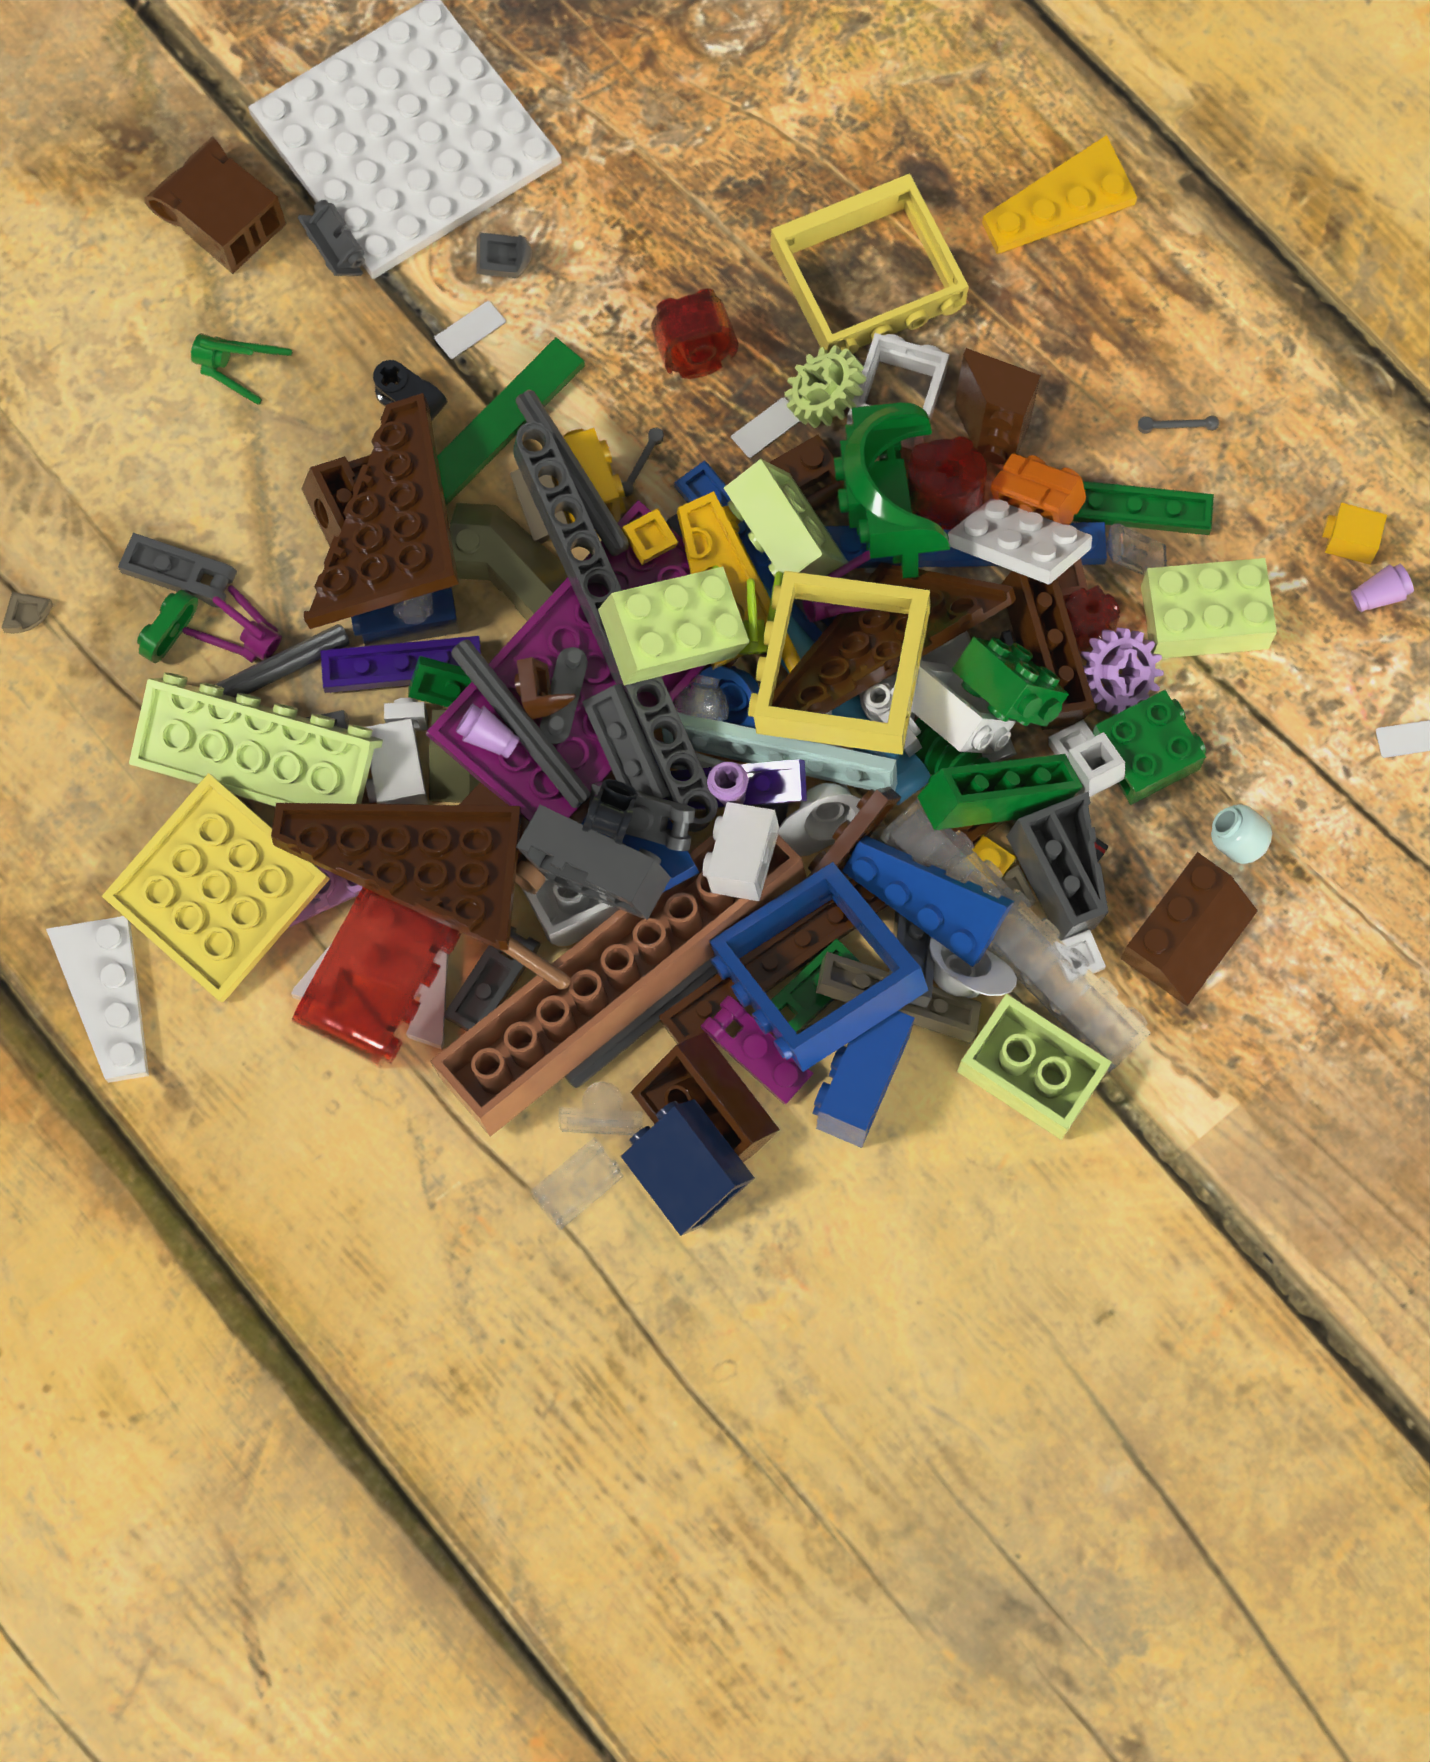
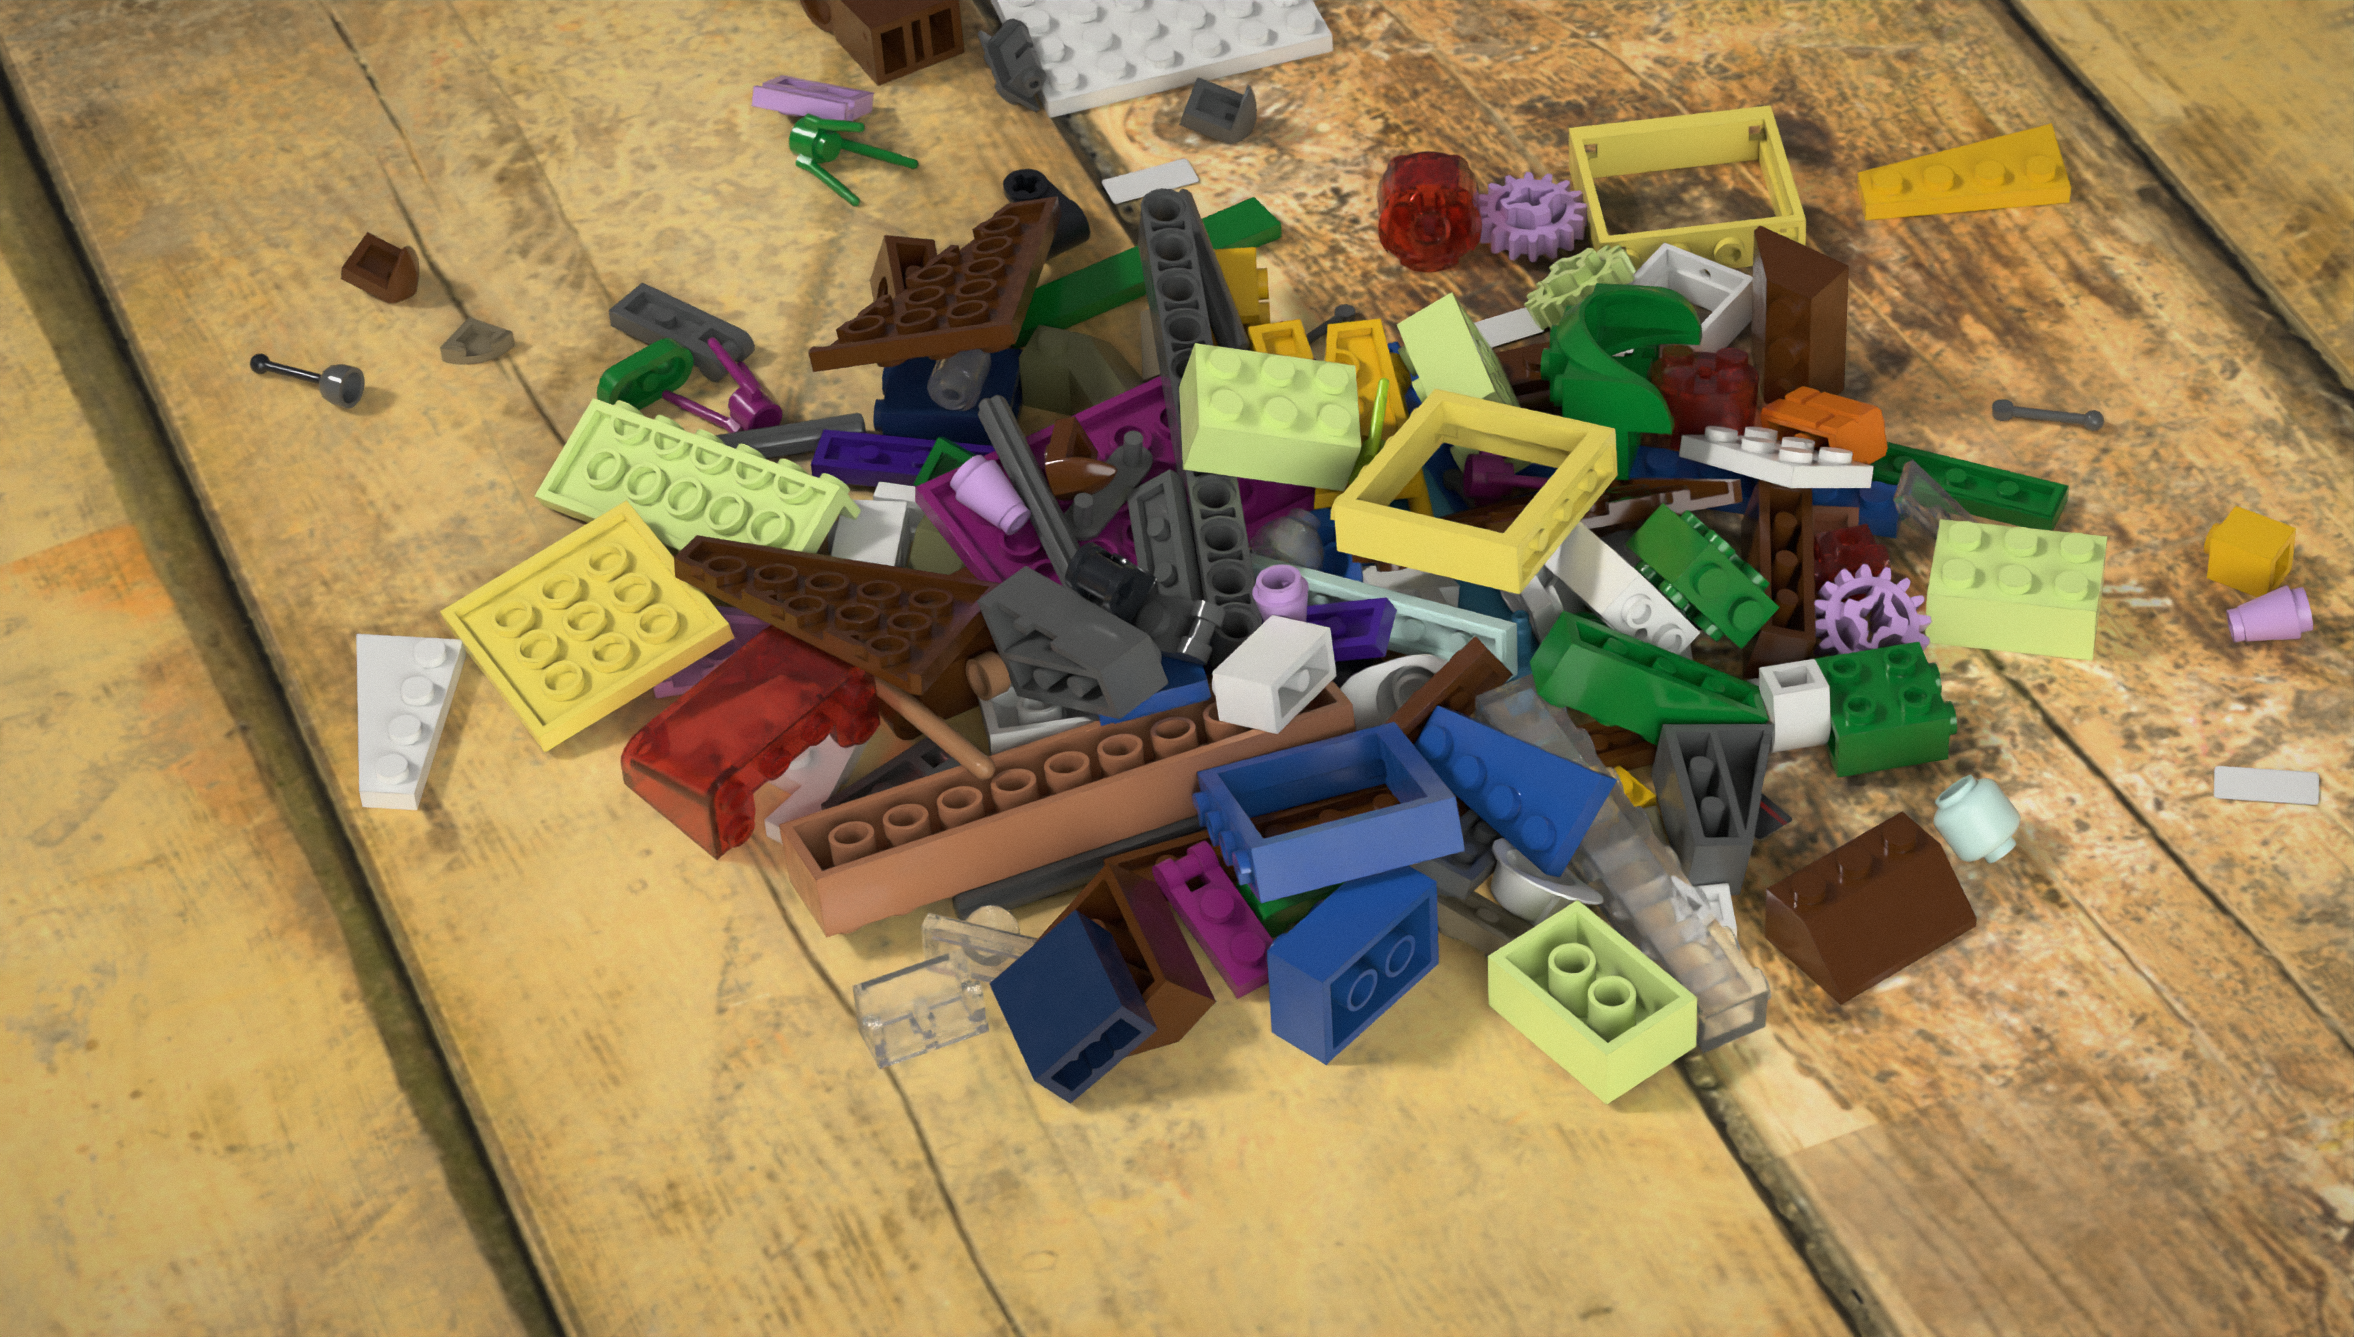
camera: 20 degrees right, 30 degrees down
(194, 312) = (801, 96): none -> lavender plate
(765, 313) = (1532, 216): none -> lavender gear

